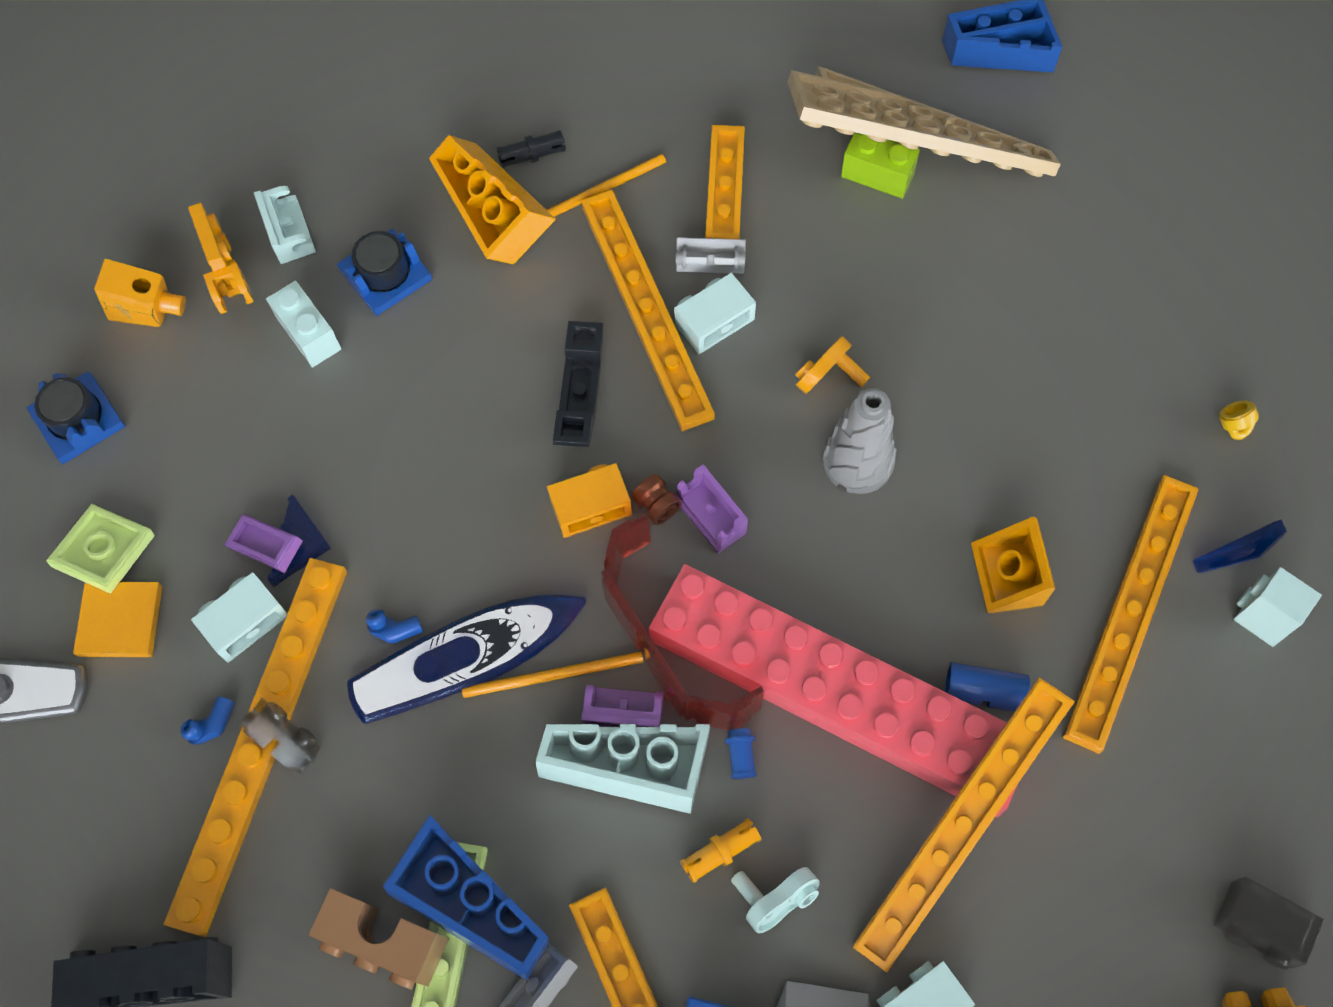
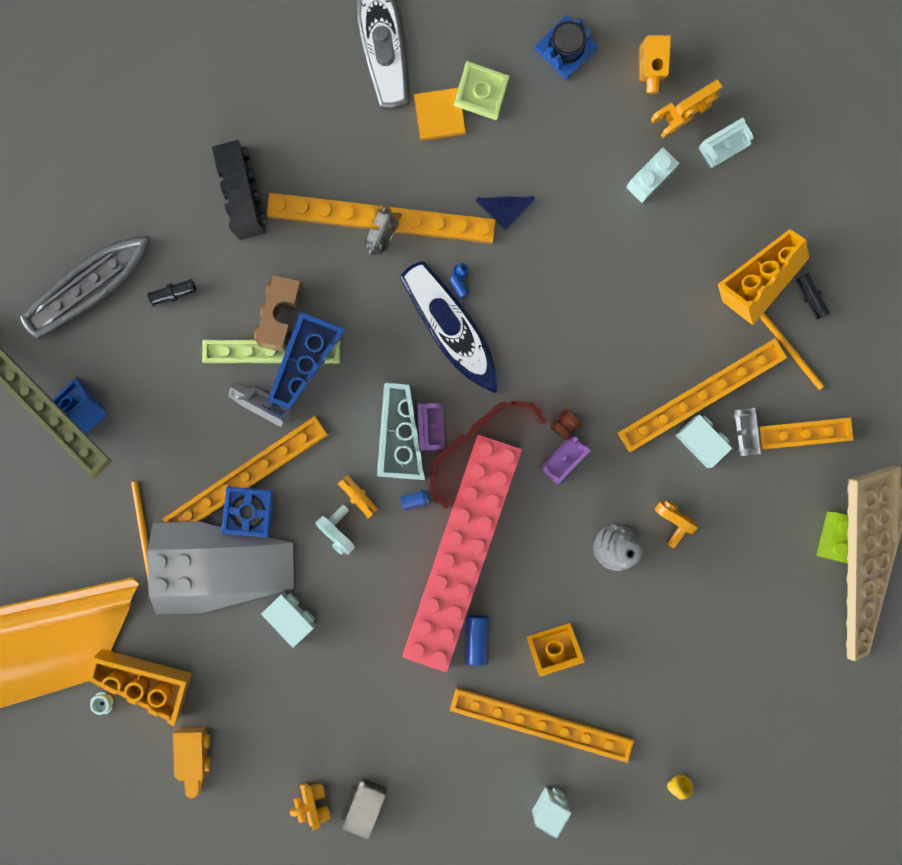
camera: 75 degrees right, 20 degrees up
(210, 727) = (383, 187): blue arm -> none
(239, 617) = (451, 186): light aqua brick -> none
(263, 543) = (499, 189): medium lavender tile -> none
(382, 263) = (703, 216): piece -> none
(553, 674) = (447, 383): light orange axle -> none
(580, 384) = (637, 362): black slope -> none
(590, 499) = (559, 383): light orange brick -> none
(962, 824) = (391, 634): light orange tile -> none
(1243, 549) = (587, 788): clear blue tile -> none

